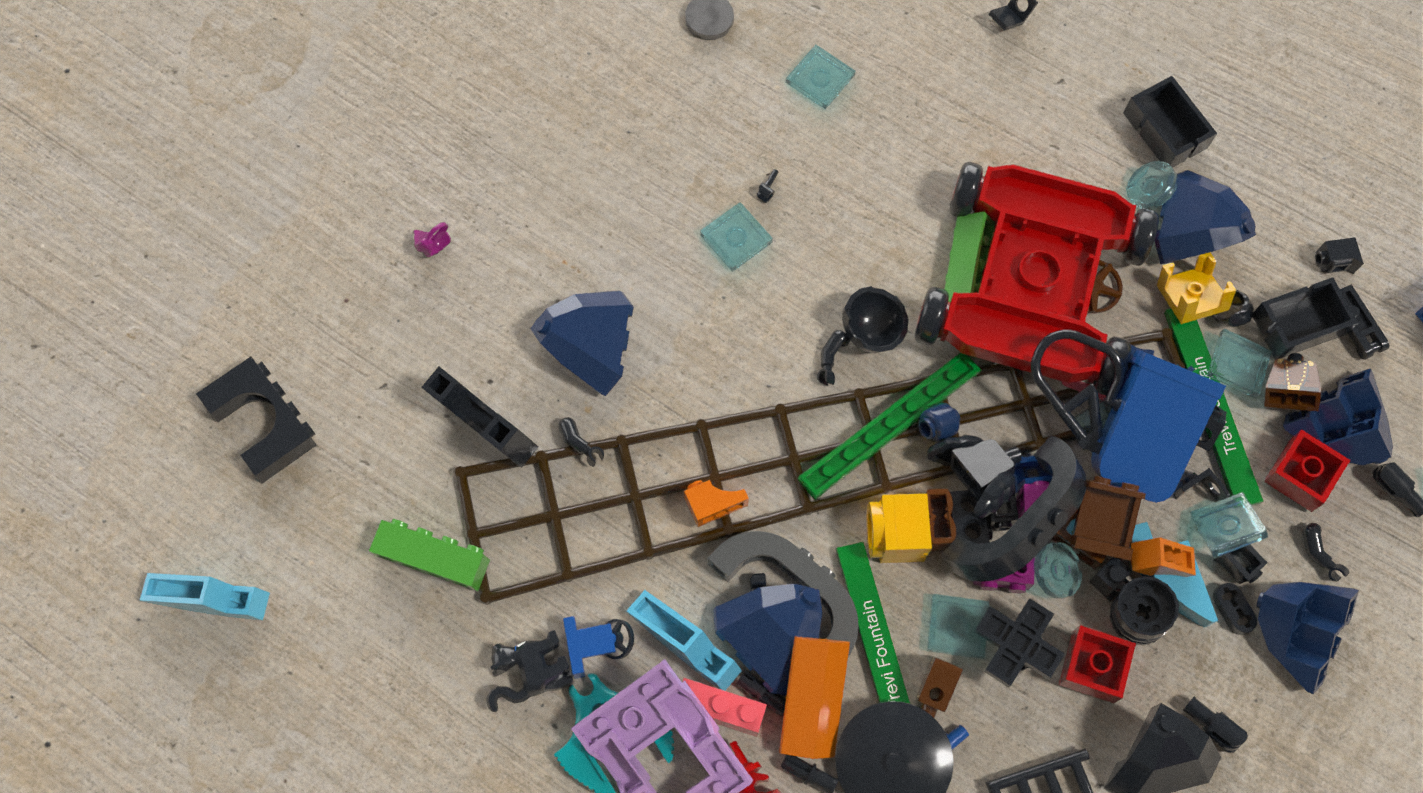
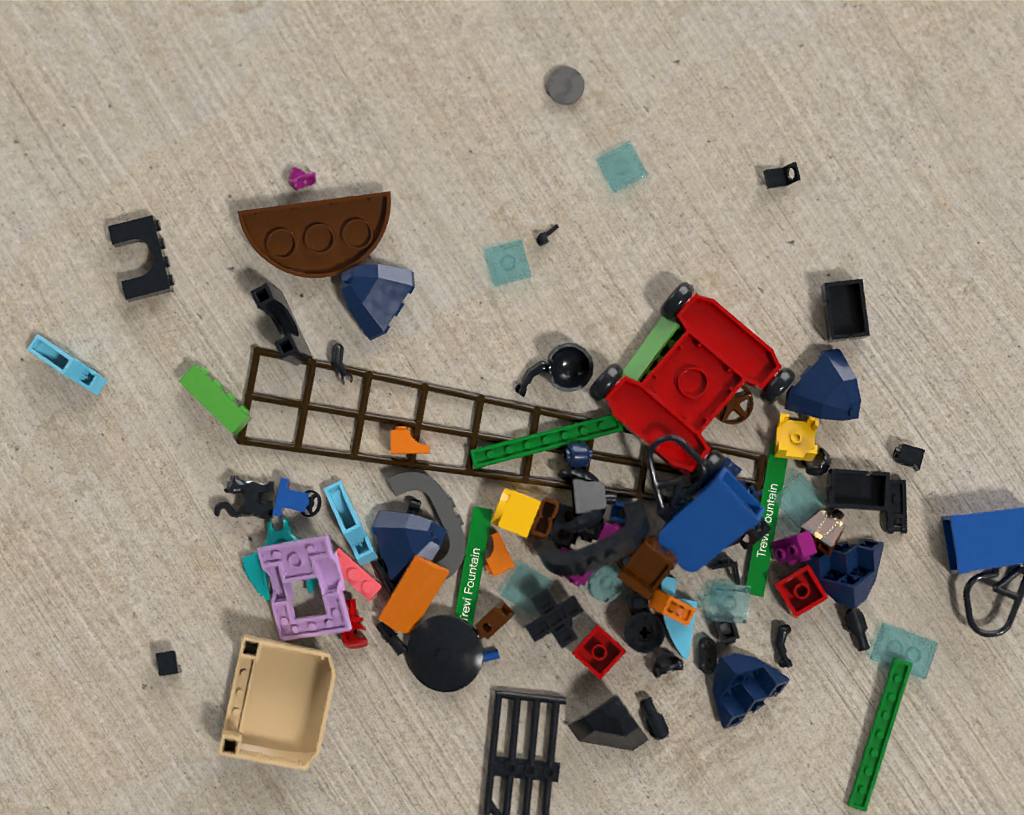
camera: 30 degrees right, 15 degrees up
(480, 295) = (318, 235): none -> reddish brown plate
(905, 599) = (500, 559): none -> orange arch
(1152, 184) = (807, 350): clear light blue tile -> none
(1191, 640) = (665, 663): none -> black piece
(1270, 418) = (794, 547): none -> magenta brick

